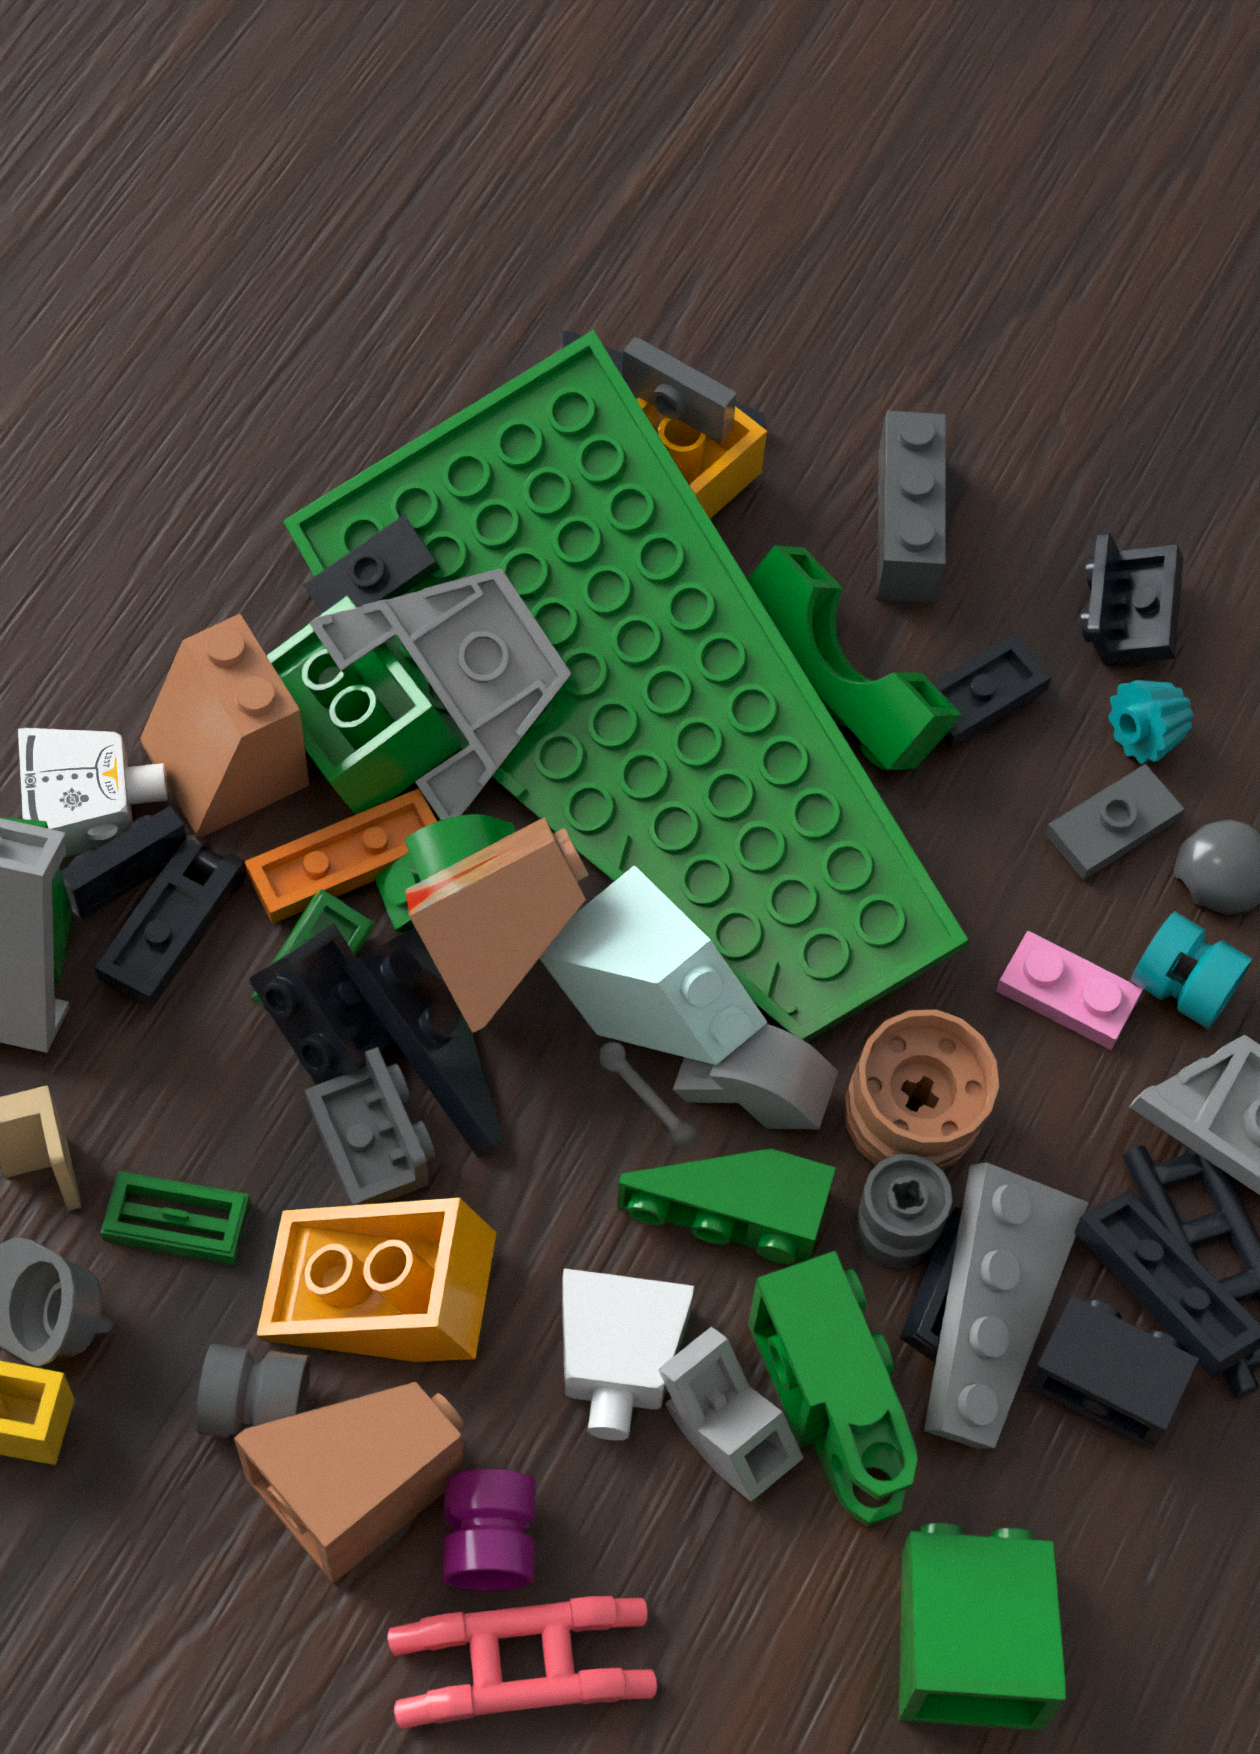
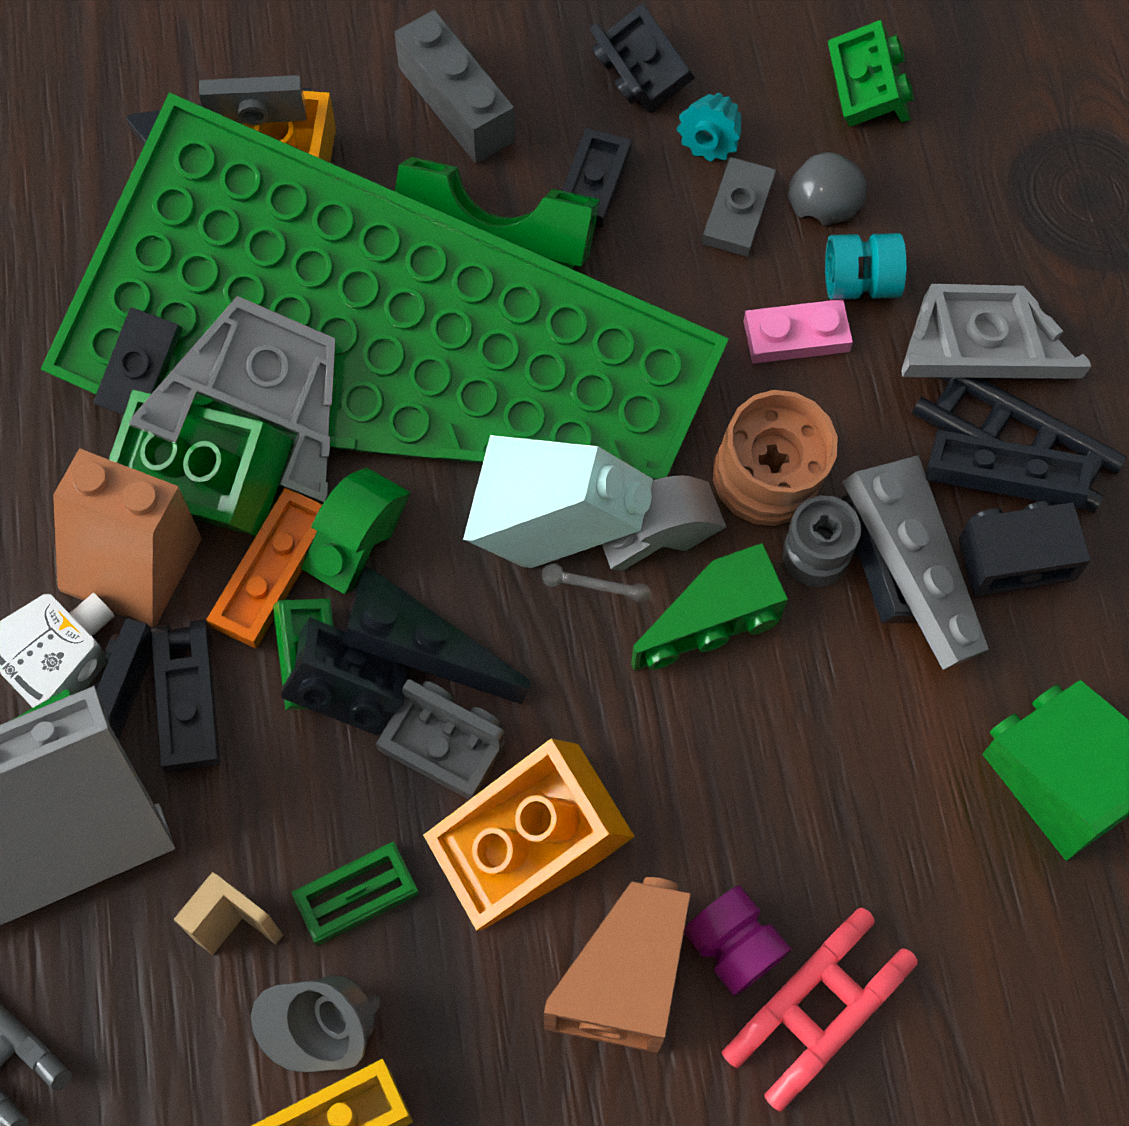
camera: 35 degrees left, 5 degrees up
(248, 1393) = (509, 973): dark grey wheel -> none
(497, 914) = (427, 530): nougat slope -> none
(617, 1341) = (716, 757): white torso -> none
(726, 1418) = (824, 754): light grey brick -> none
(835, 1381) = (875, 680): green brick -> none

